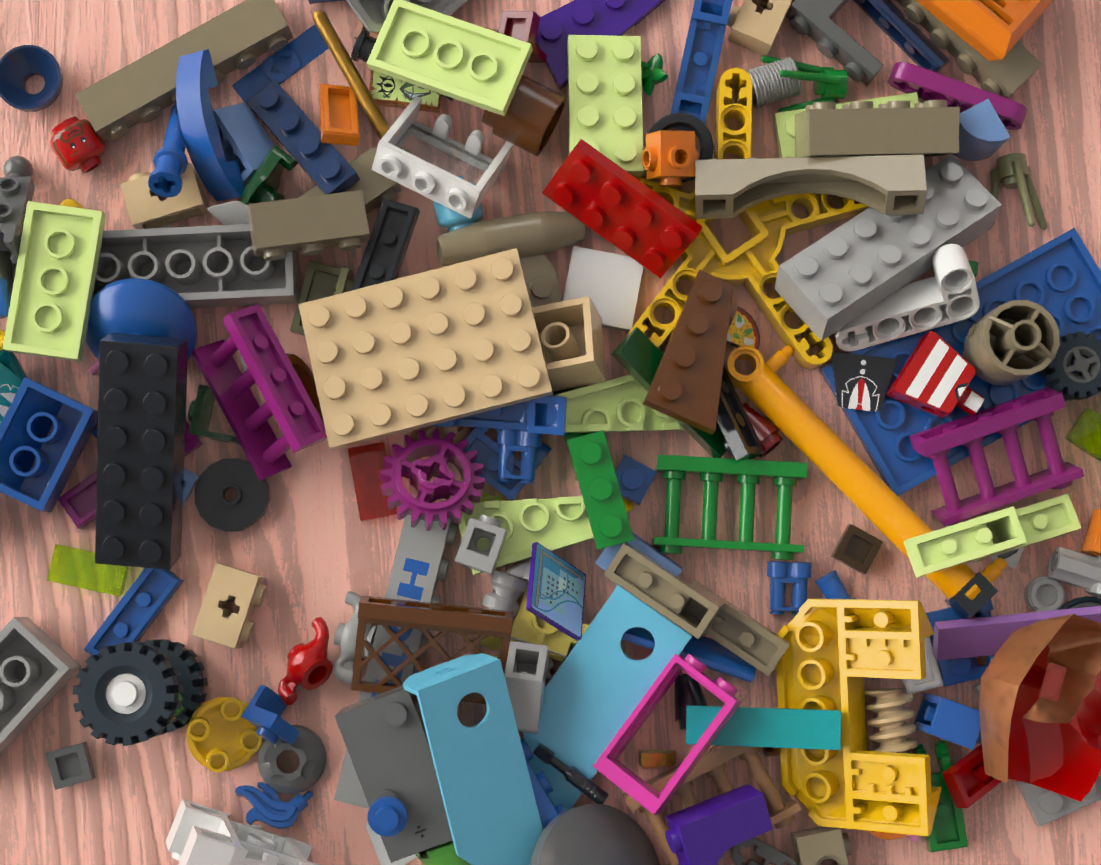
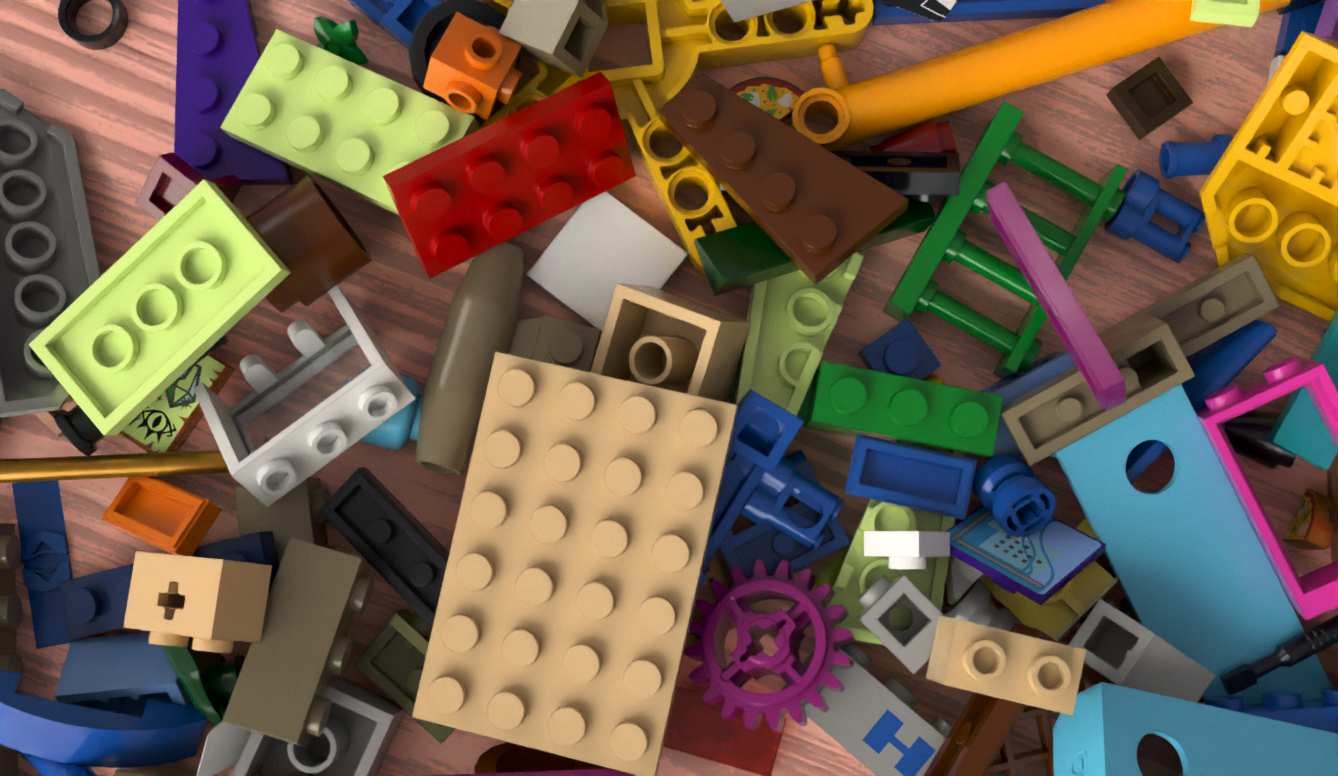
camera: 55 degrees left, 0 degrees up
(306, 158) = (197, 599): none -> tan brick
(483, 602) = (1006, 665): none -> tan brick
(522, 526) = (907, 548): none -> white plate
(564, 511) = (910, 476): none -> blue tile
(583, 575) = (1013, 495): none -> blue wheel
(703, 539) = (1056, 298): none -> magenta tile

